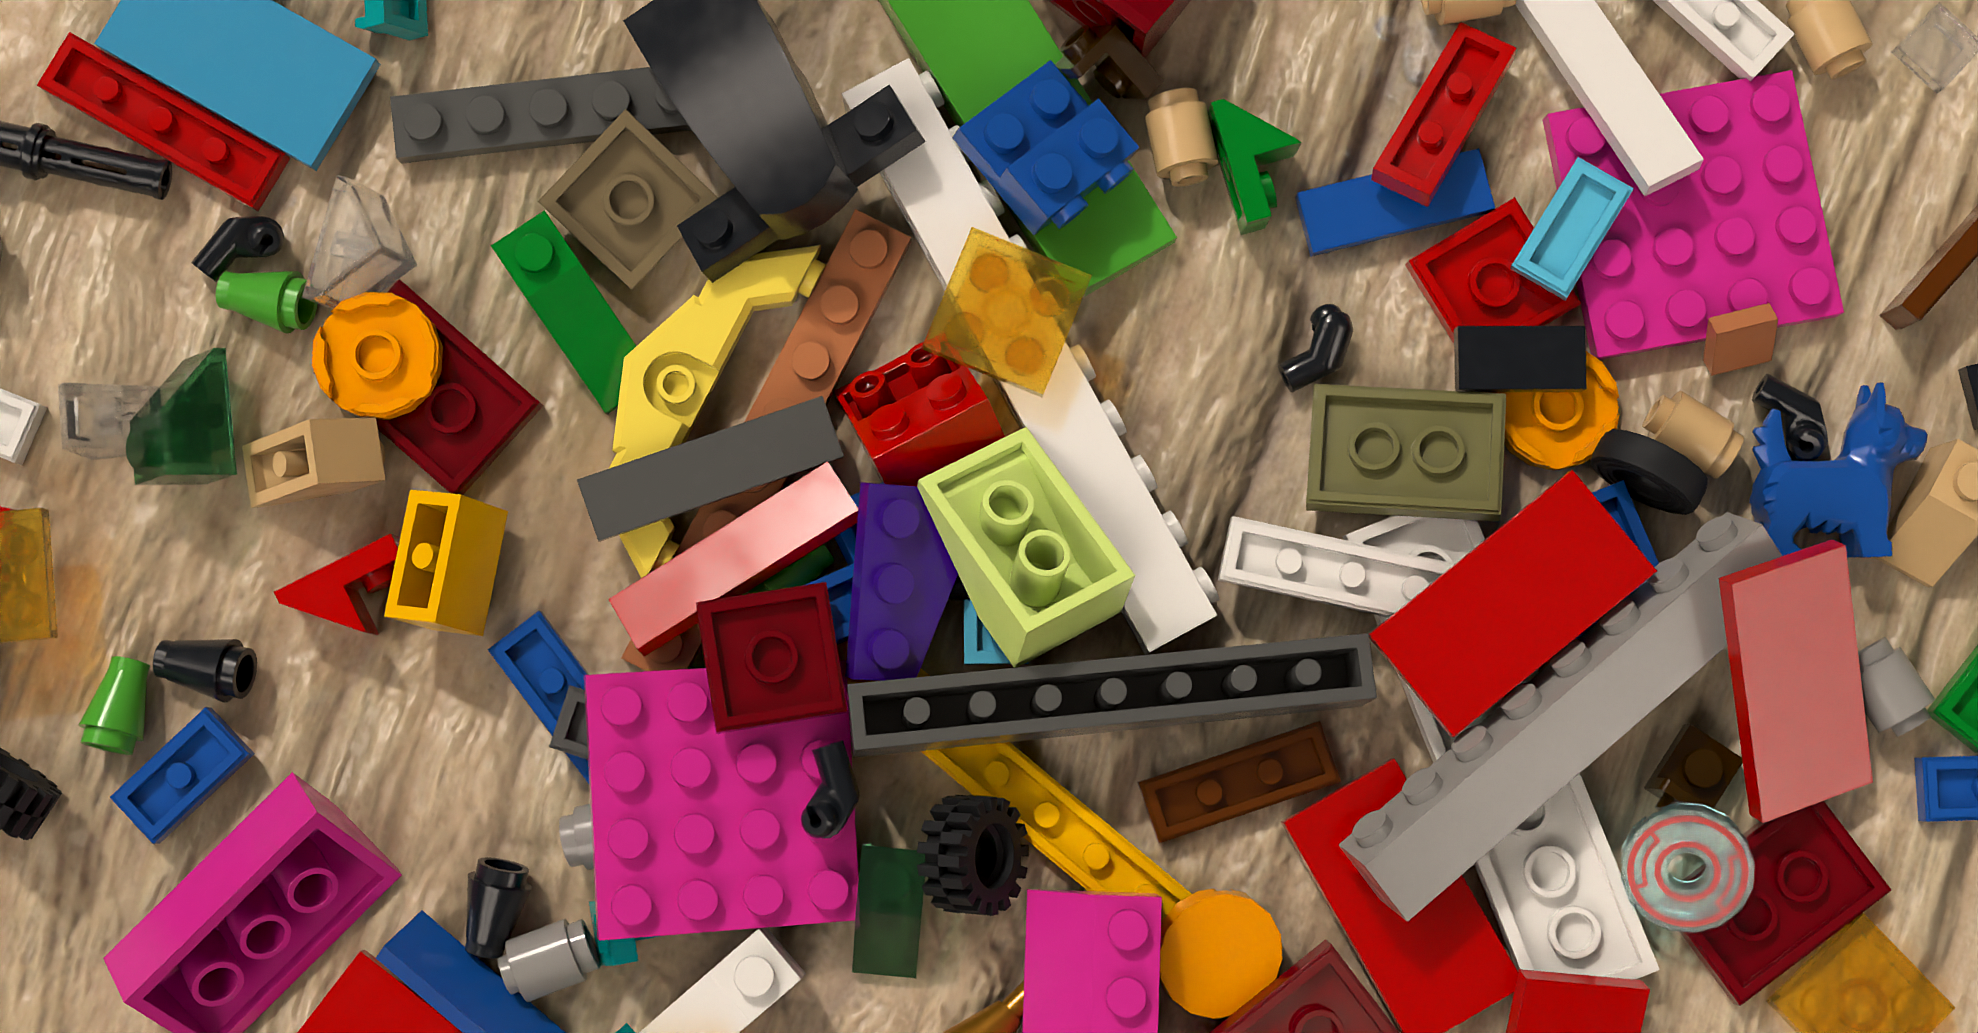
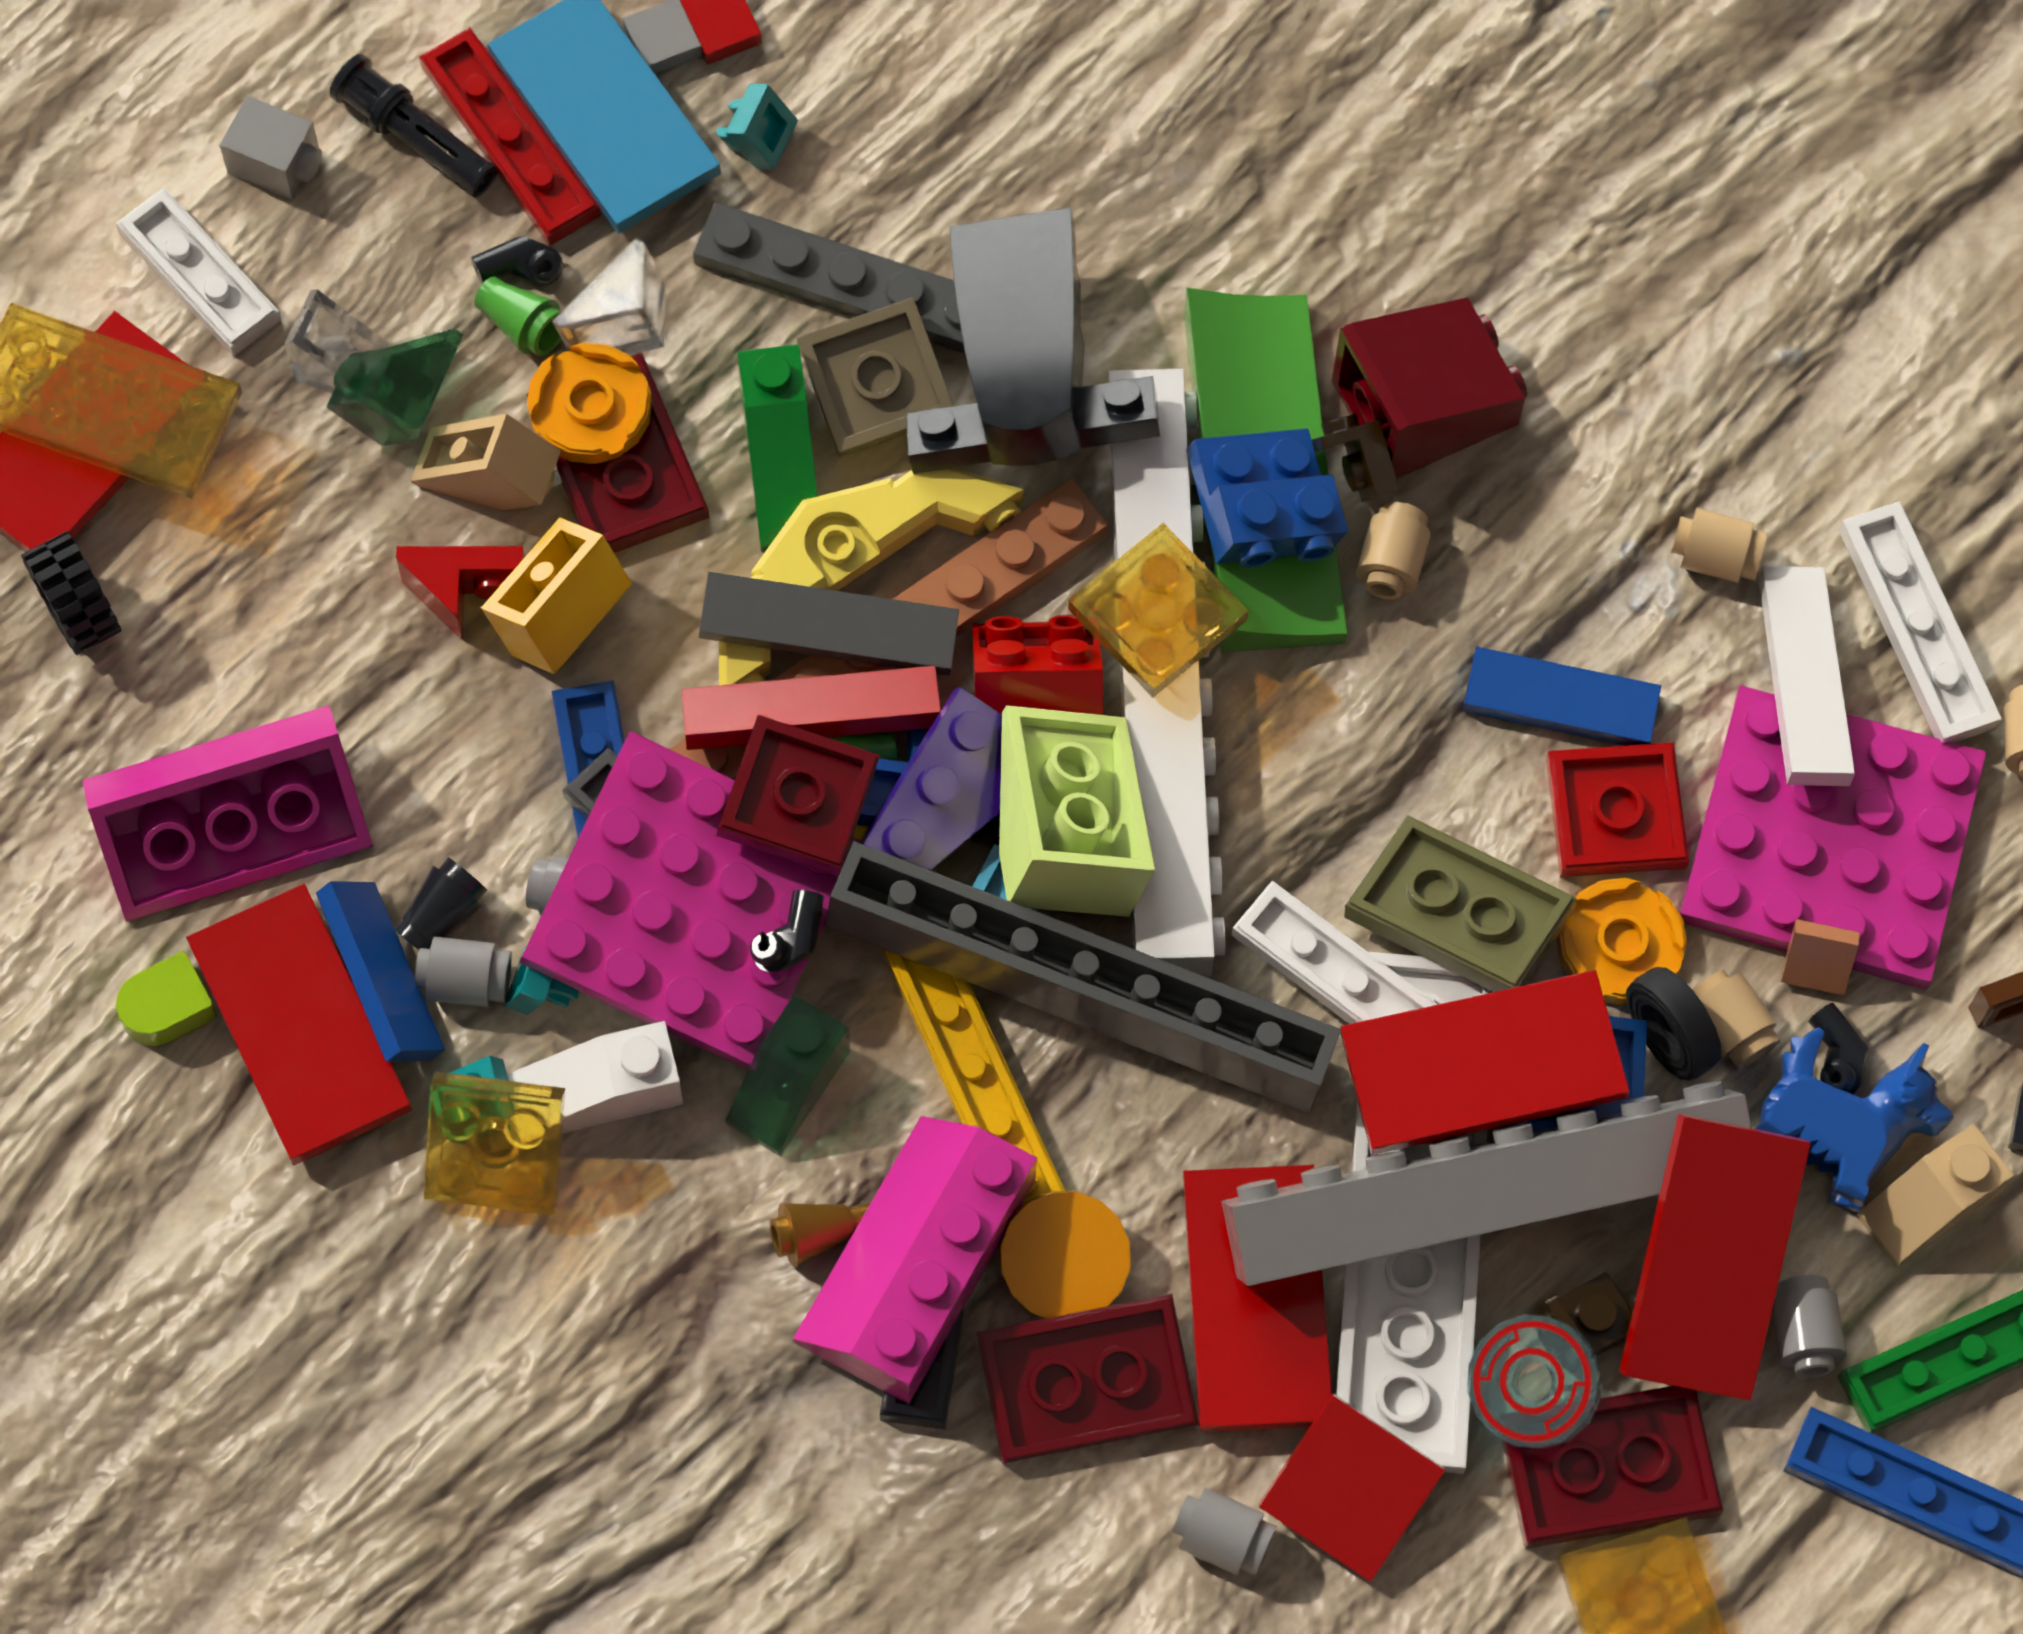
camera: 30 degrees right, 15 degrees down
(117, 708) = (204, 589): bright green cone -> none
(182, 775) = (231, 668): blue plate -> none
(210, 667) = (303, 589): black cone -> none
(973, 854) = (863, 1051): black tyre -> none
(1238, 782) = (1161, 1125): reddish brown tile -> none
(1241, 147) = (1448, 589): green slope -> none
(1327, 349) = (1434, 792): black arm -> none
(1443, 114) = (1641, 638): red plate -> none
(1520, 358) = (1606, 876): black tile -> none
(1571, 228) = (1708, 786): medium azure tile -> none

